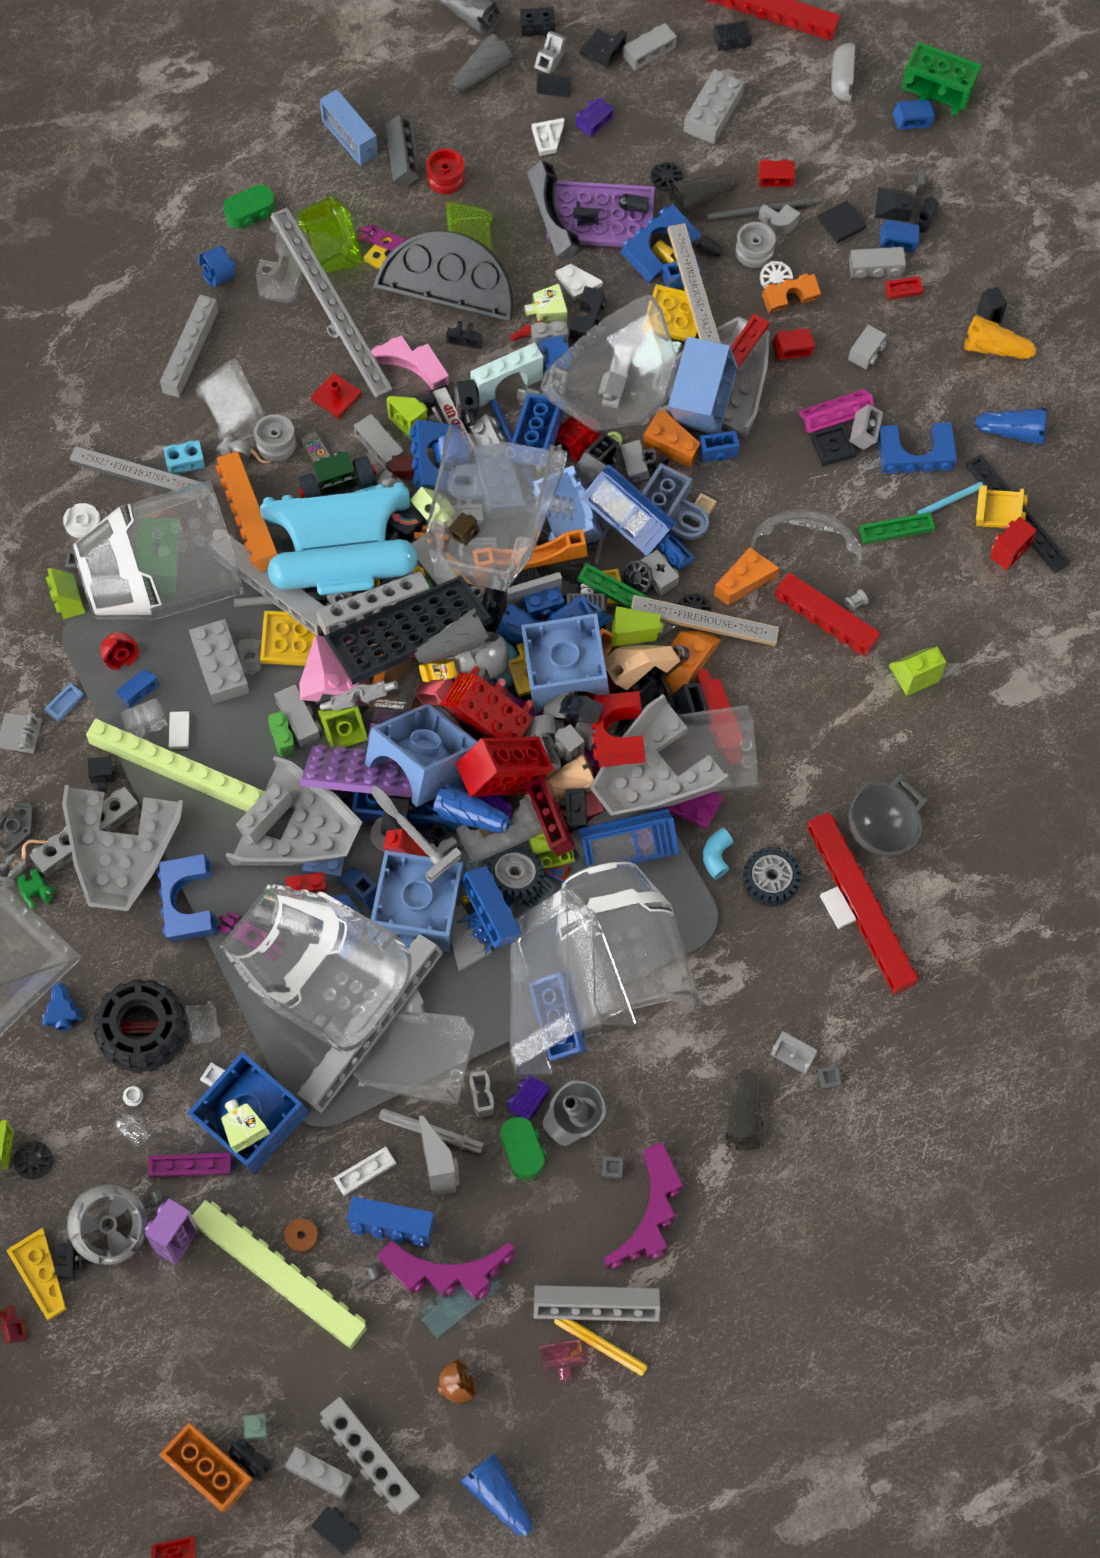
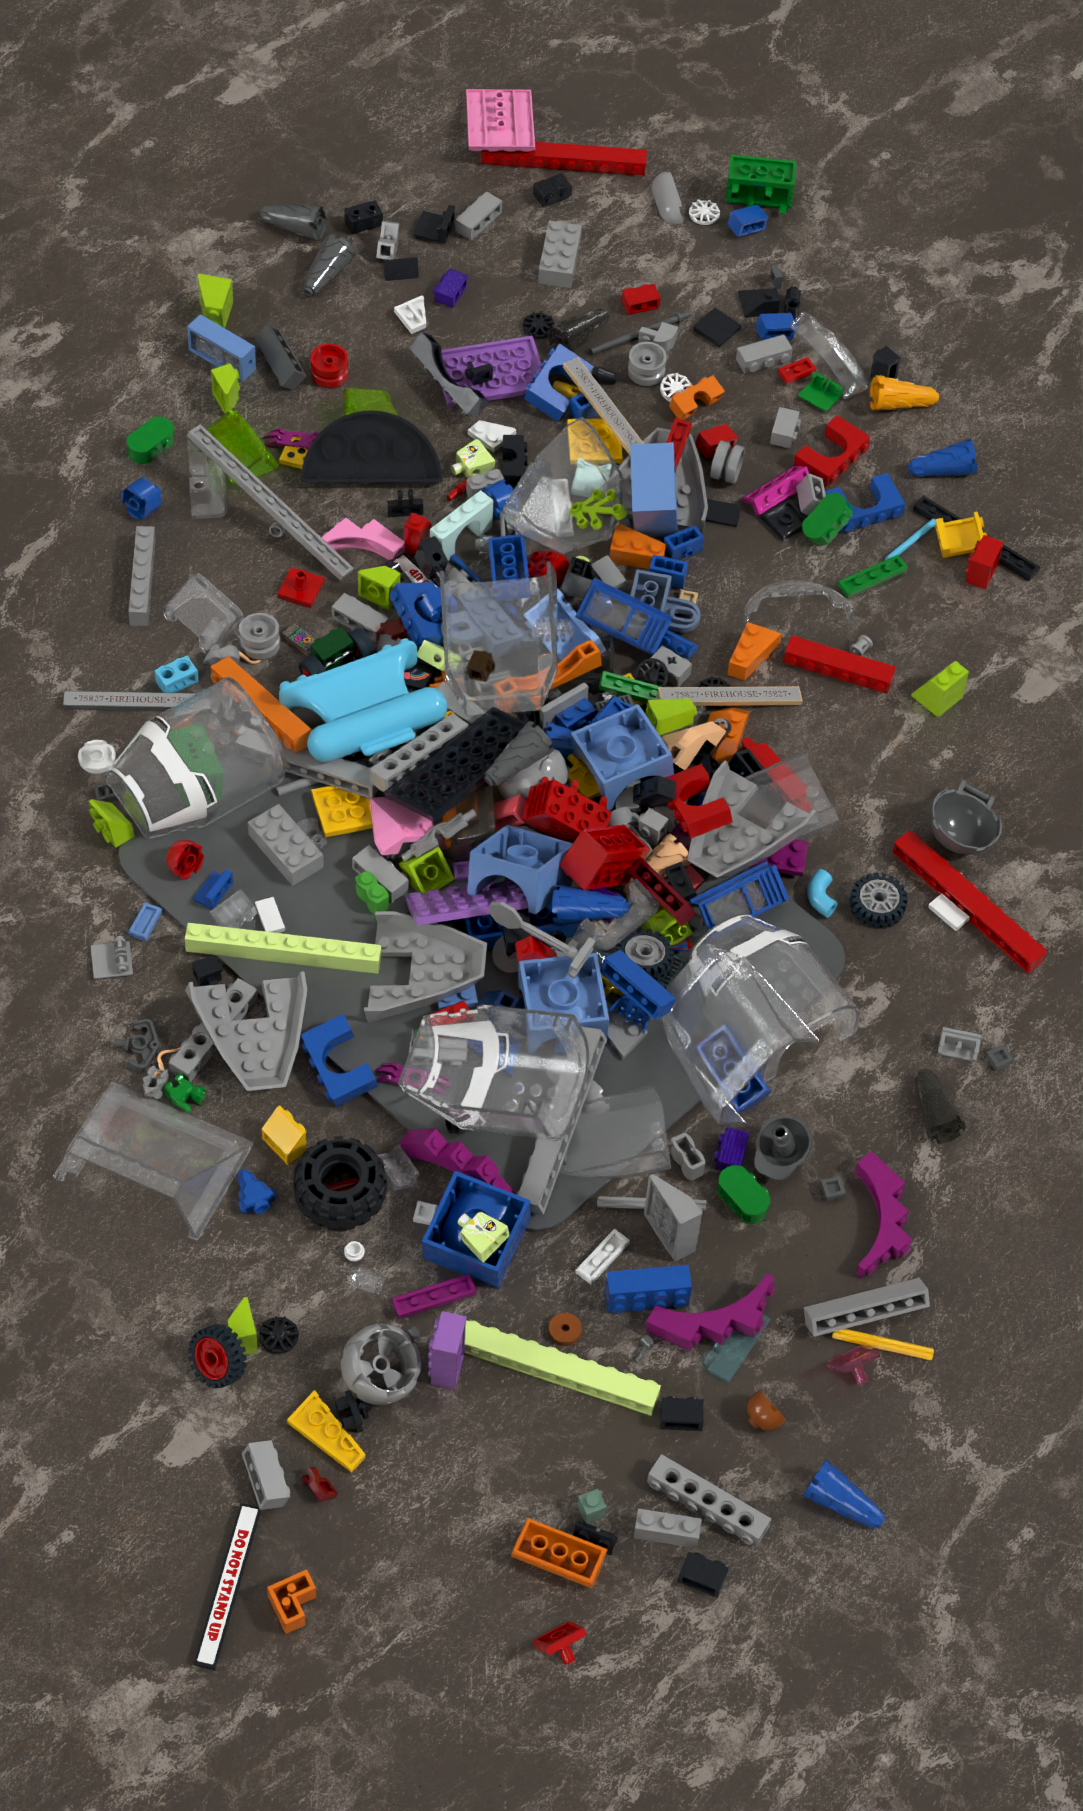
camera: 20 degrees left, 10 degrees down
(109, 961) = (285, 1135): none -> yellow slope
(256, 1037) = (454, 1156): none -> magenta arch
(265, 813) = (387, 963): light grey brick -> none
(339, 170) = (225, 386): none -> lime slope
(361, 77) = (215, 298): none -> lime slope
(377, 1358) = (681, 1413): none -> black piece
(438, 670) = (508, 790): yellow leg -> none
(459, 367) = (415, 530): none -> red slope
(611, 386) = (564, 513): light grey brick -> none
(632, 384) = (579, 509): none -> lime plant
(634, 203) = (521, 352): black piece -> none
(654, 457) = (628, 567): black piece -> none
(700, 472) = (671, 567): none -> blue brick
(772, 422) = (723, 512): none -> black slope
(794, 370) = (727, 462): none -> light grey wheel
(871, 457) = (827, 519): none -> green brick
(875, 94) = (704, 212): none -> white wheel
(894, 402) = (848, 437): none -> red arch
(919, 317) = (821, 392): none -> green hinge
(948, 278) = (833, 352): none -> clear windscreen

